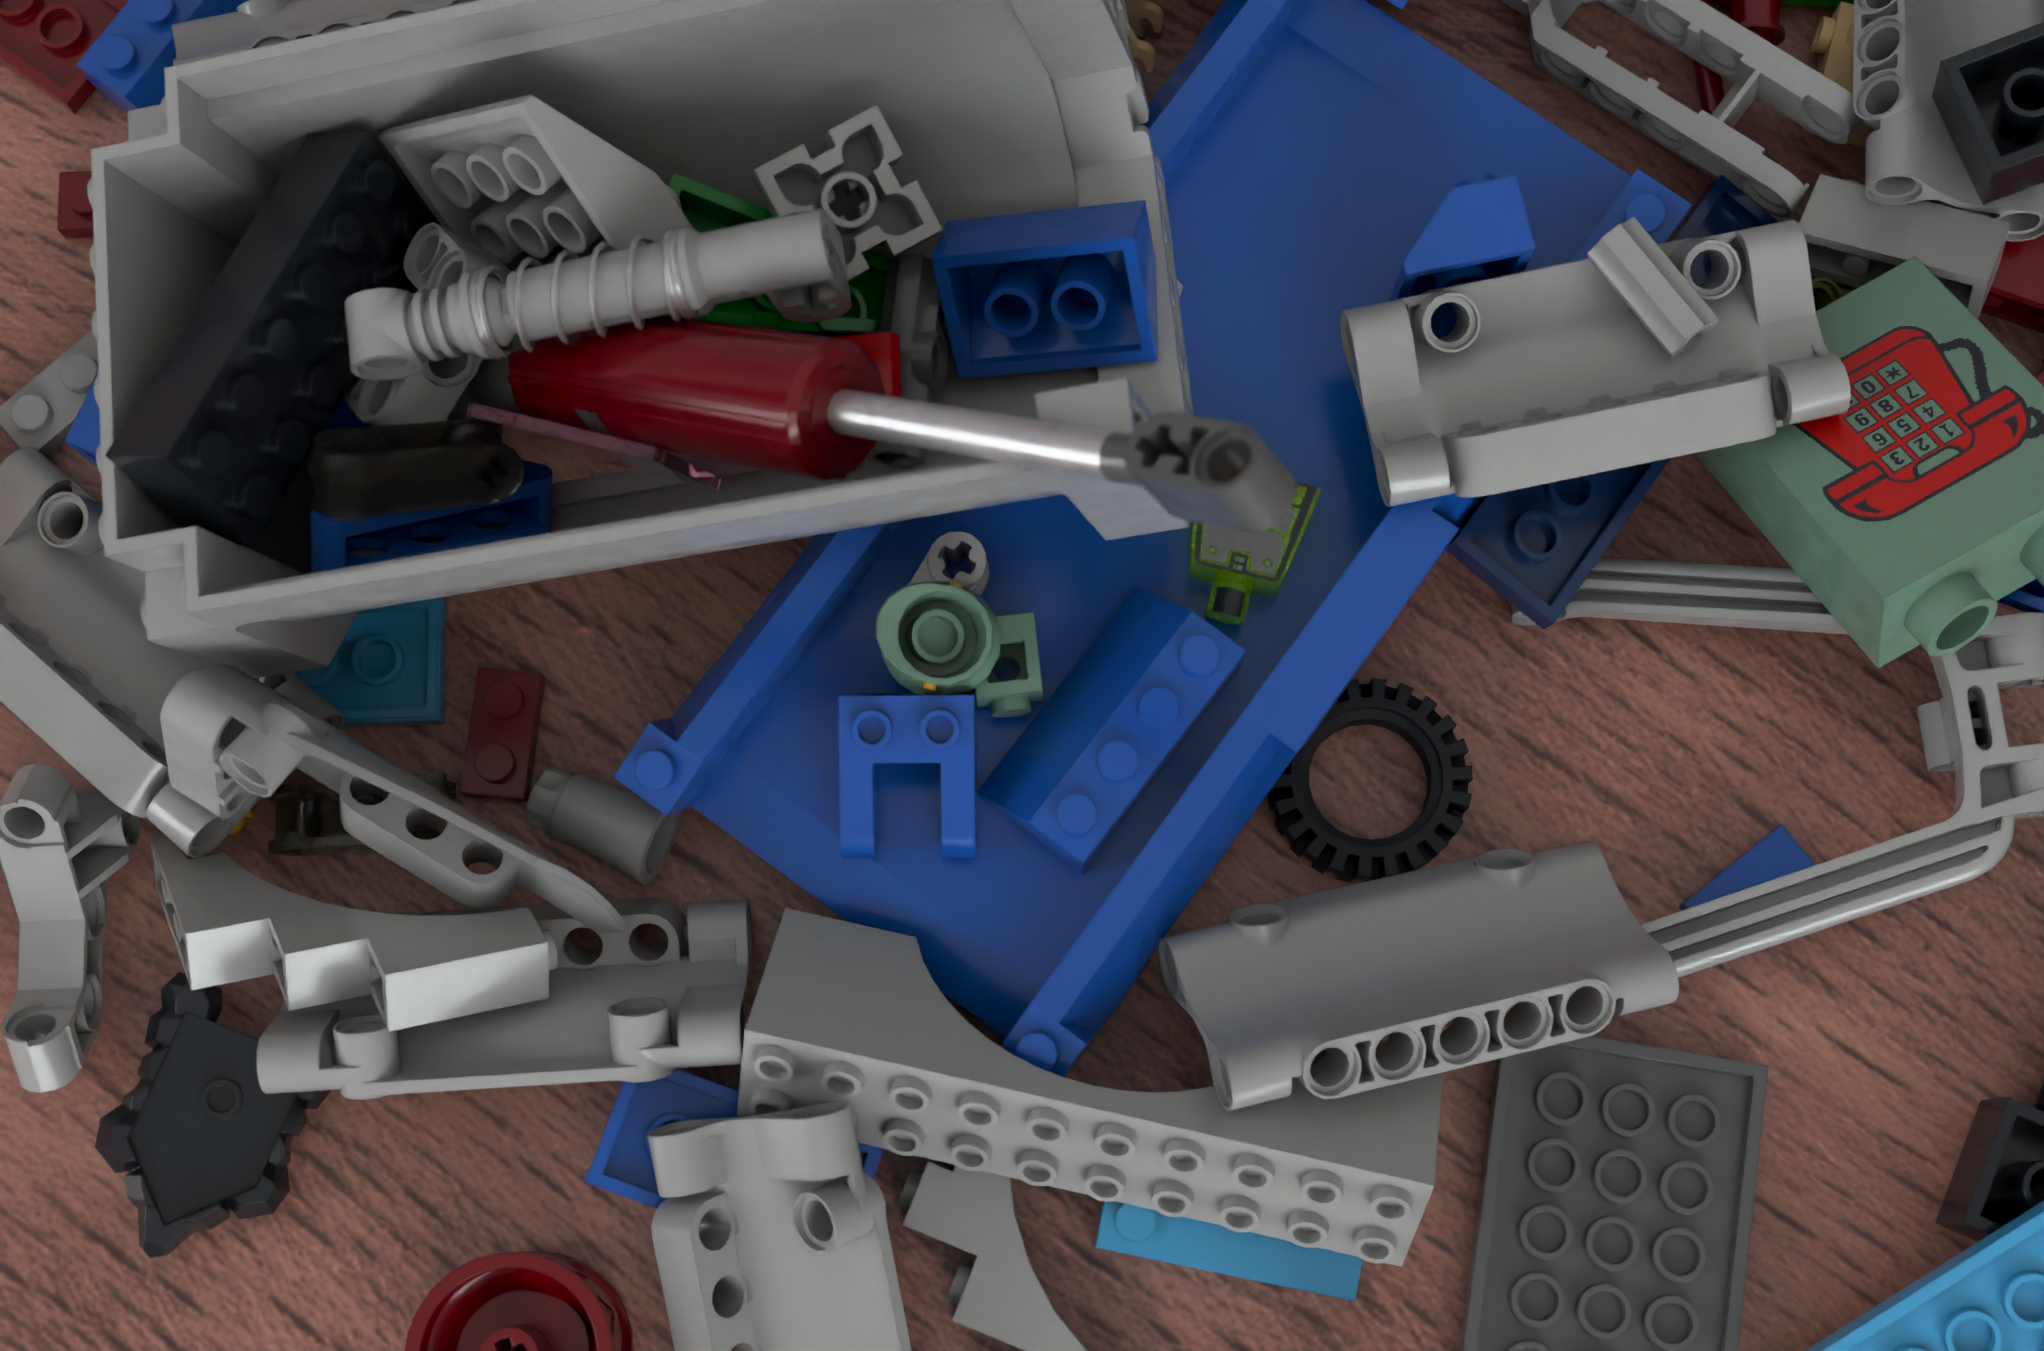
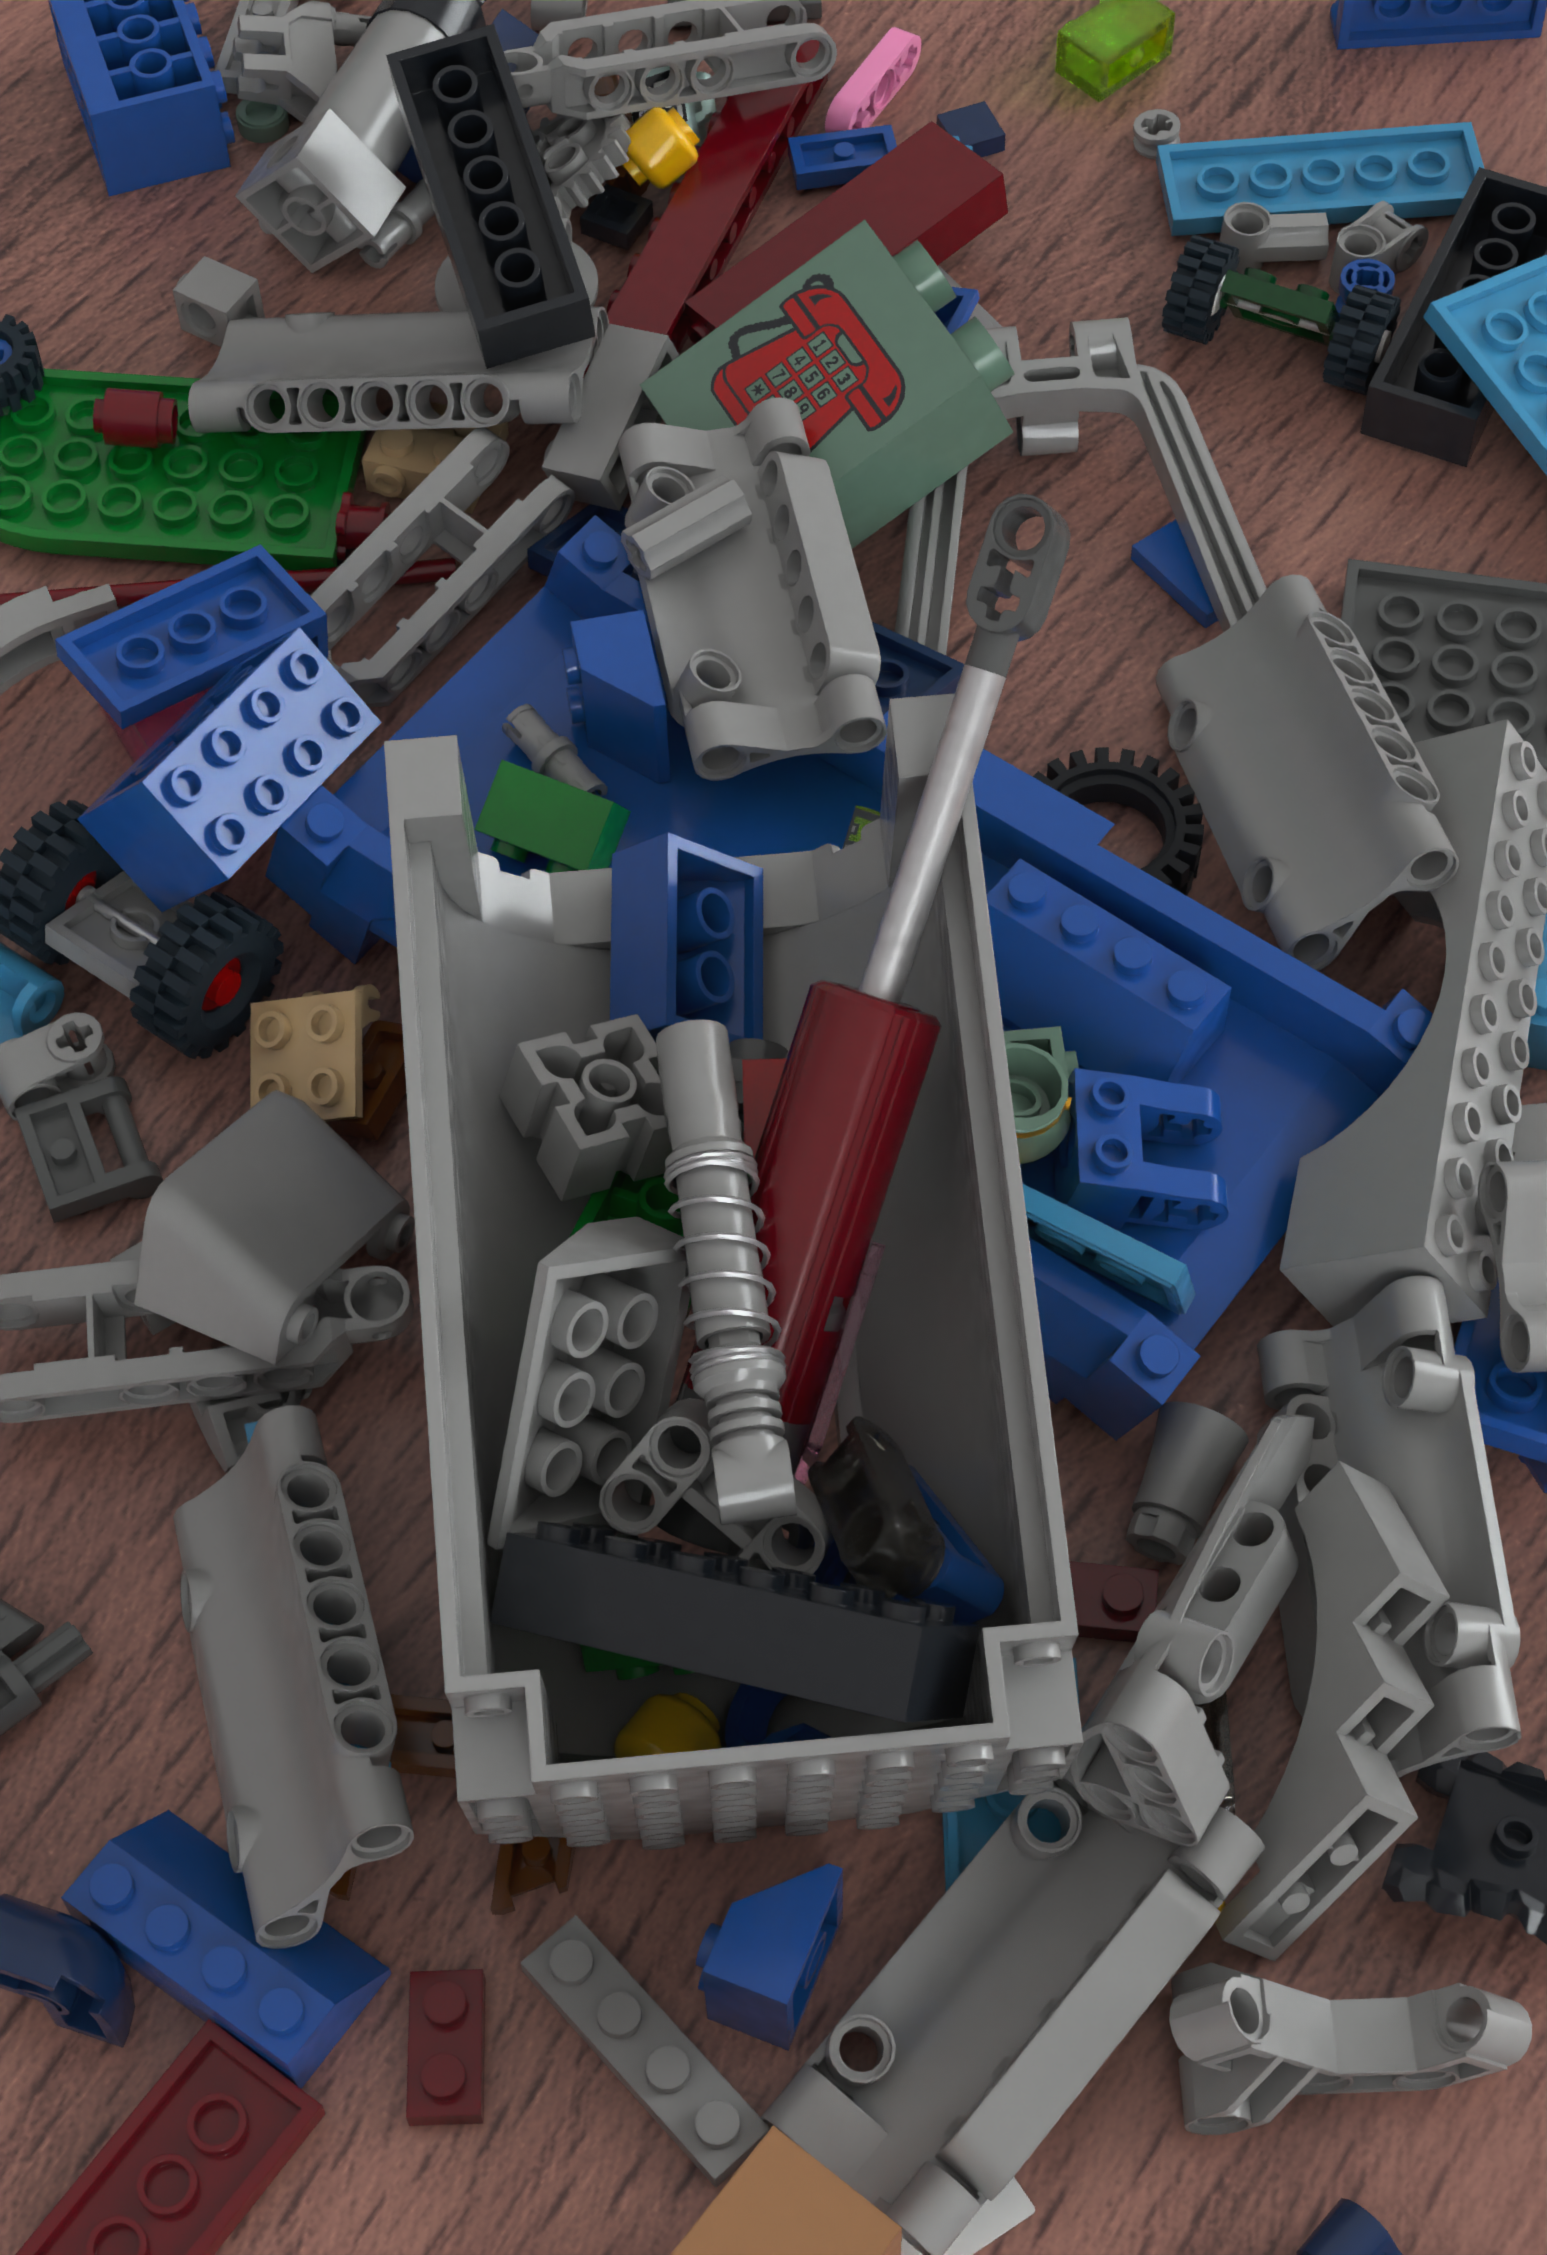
camera: 90 degrees left, 20 degrees down
(798, 688) = (1108, 1252): none -> dark azure tile
(1305, 193) = (550, 820): none -> green brick
(1399, 197) = (550, 753): none -> light grey pin

